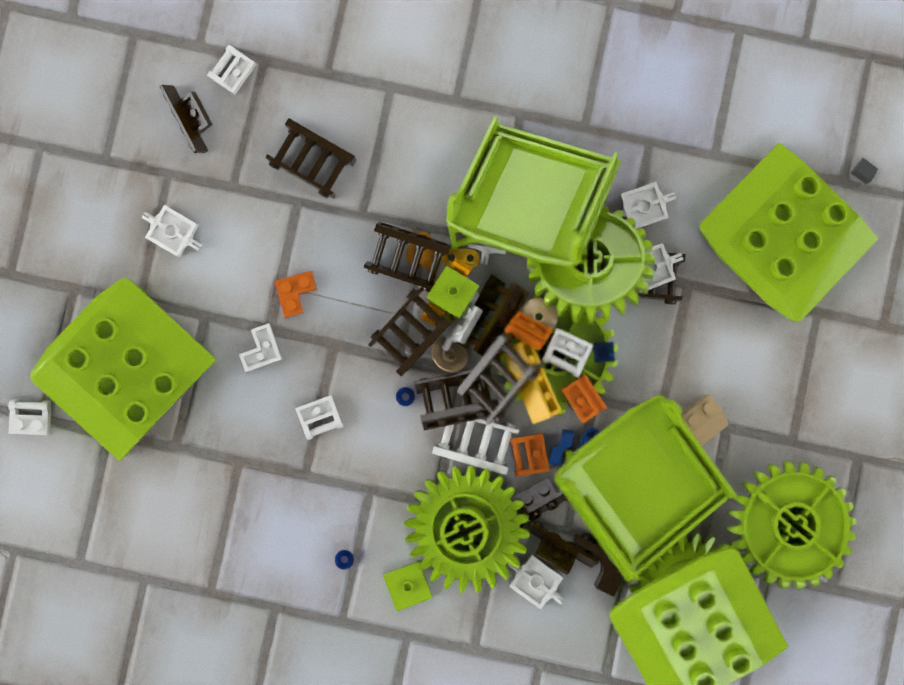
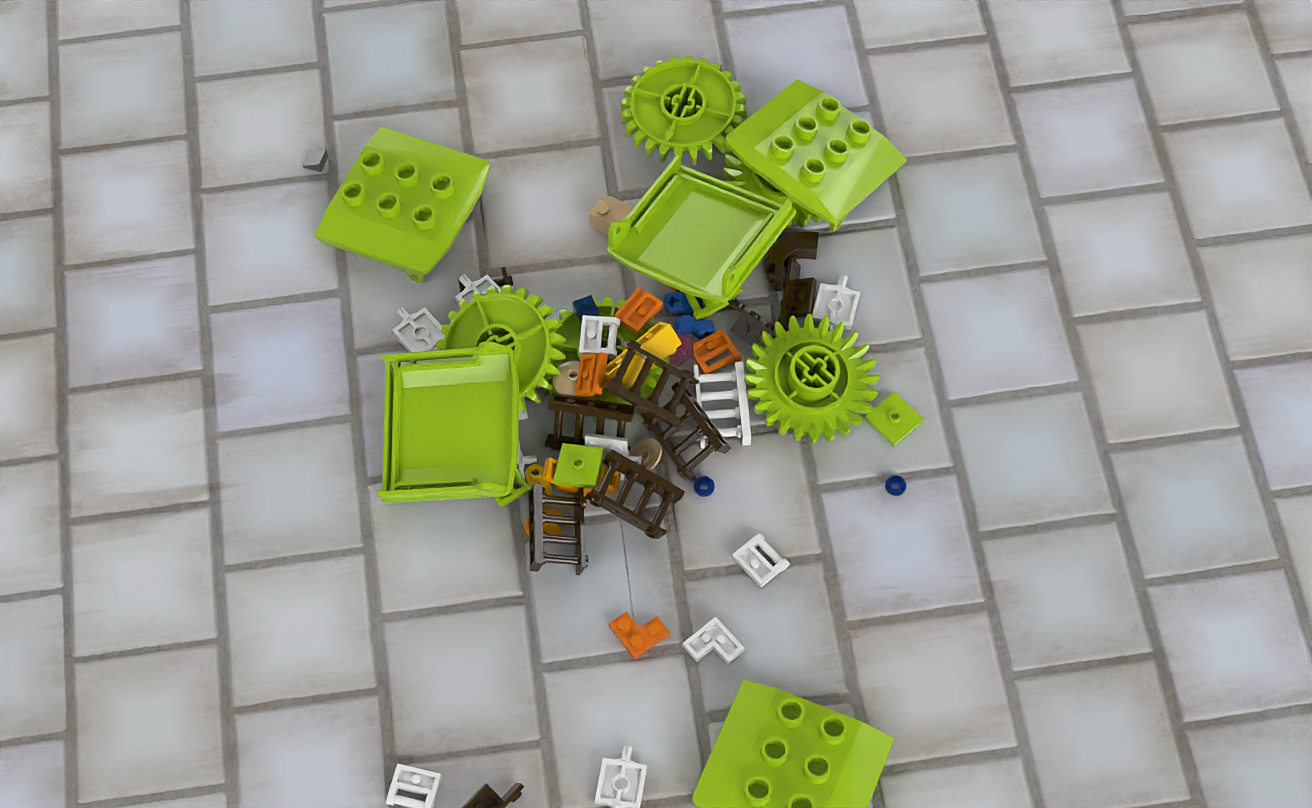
camera: 110 degrees left, 25 degrees down
(311, 140) = (465, 672): dark brown fence -> none
(541, 428) = (683, 352): none -> clear pink brick

